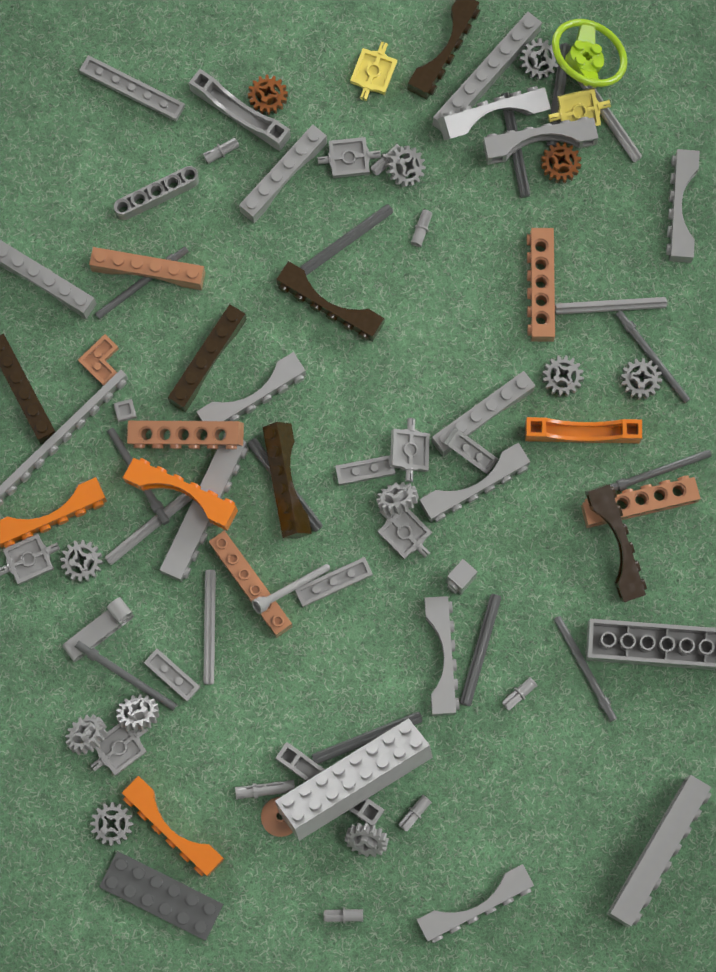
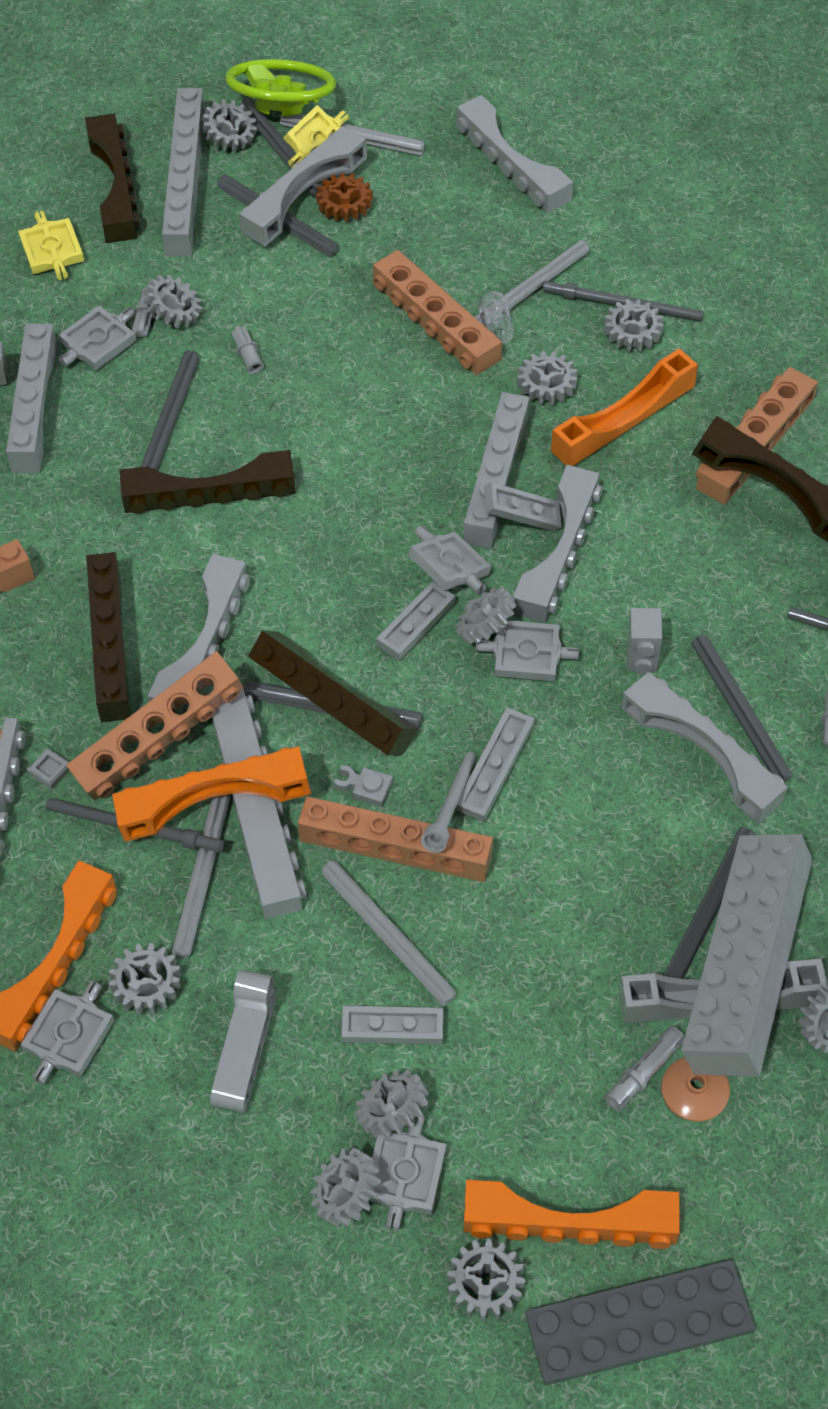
camera: 40 degrees left, 20 degrees down
(93, 654) = (265, 1073): dark grey bar -> none
(265, 543) = (367, 787): none -> light grey plate
(460, 123) = (254, 166): arch -> none
(568, 316) = (499, 318): none -> clear plate
(622, 484) = (752, 382): dark grey bar -> none

